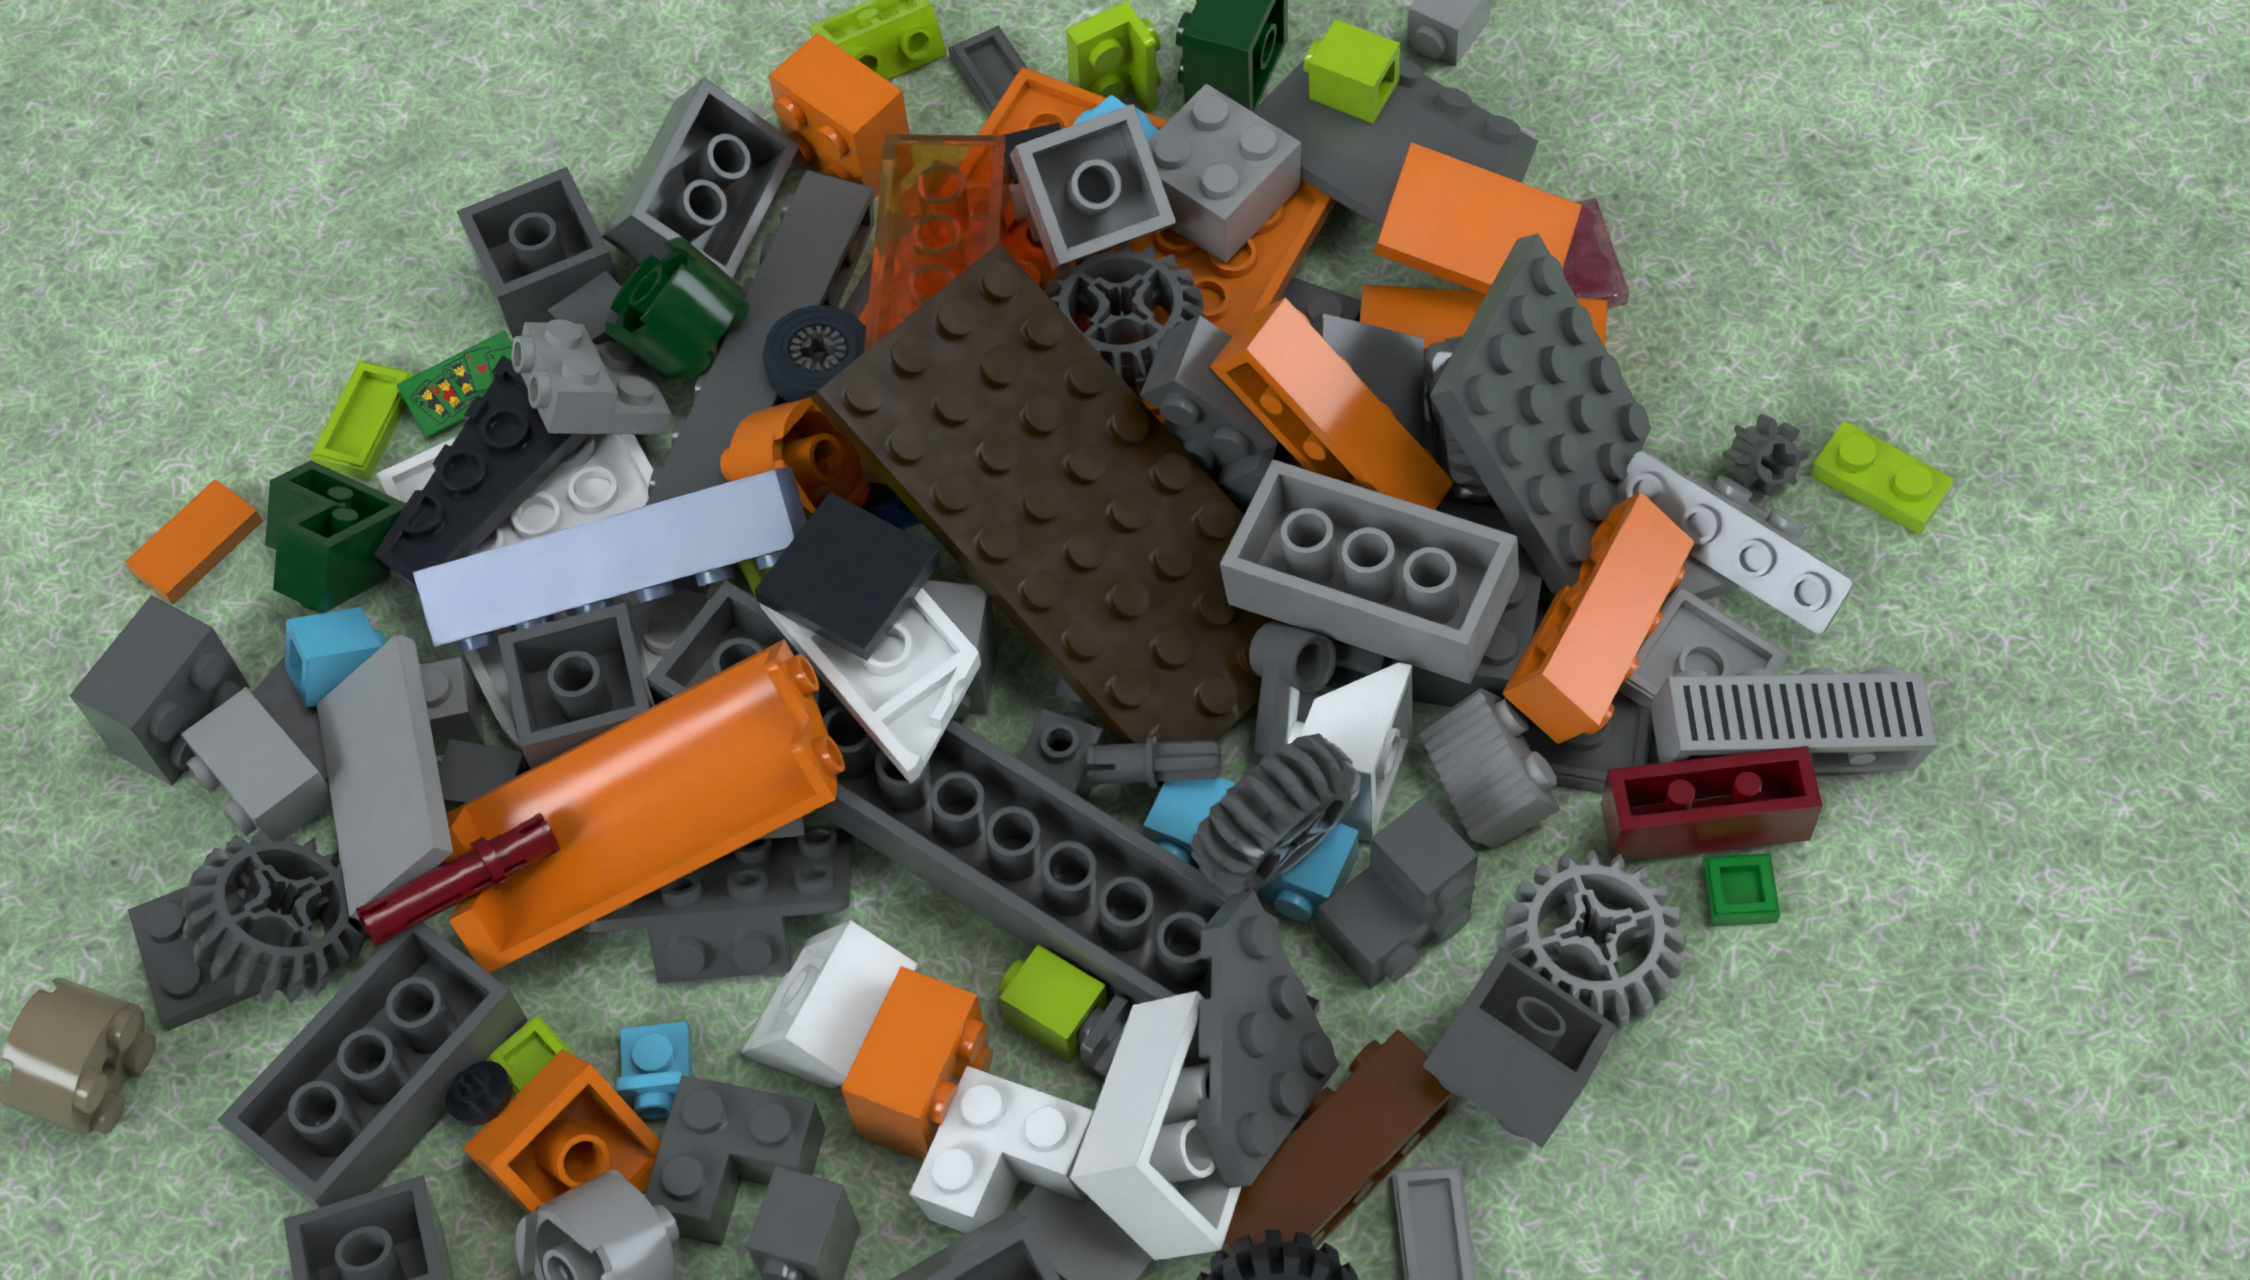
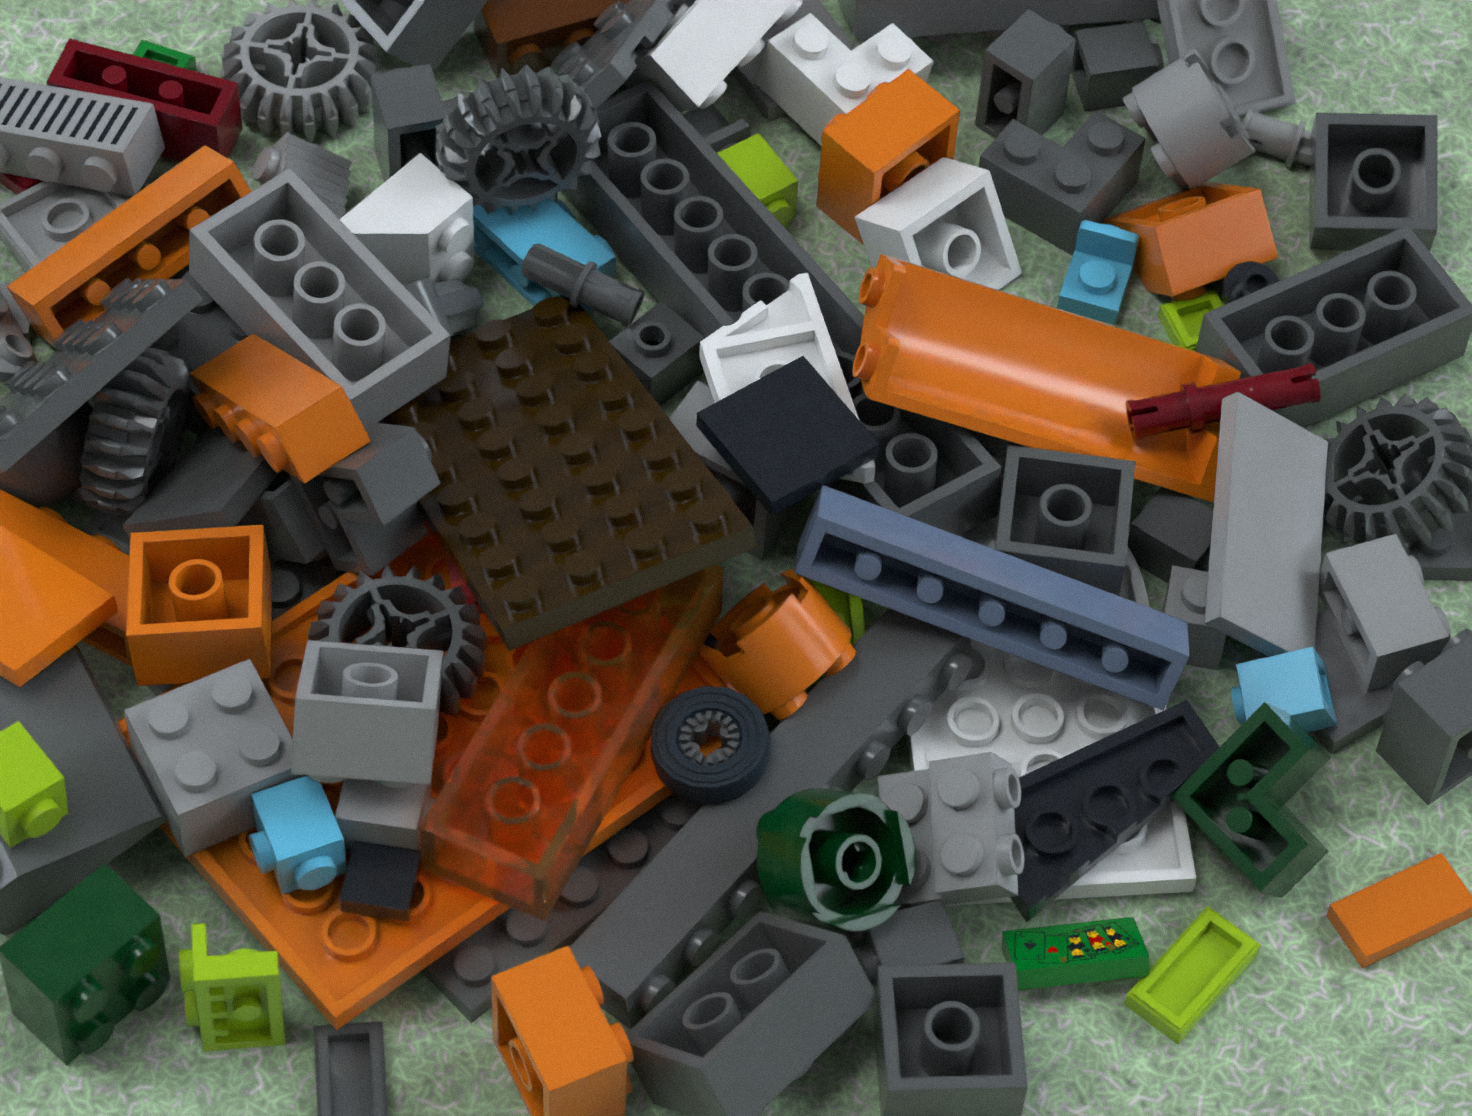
camera: 165 degrees left, 5 degrees down
(1311, 257) = (198, 603): none -> orange brick

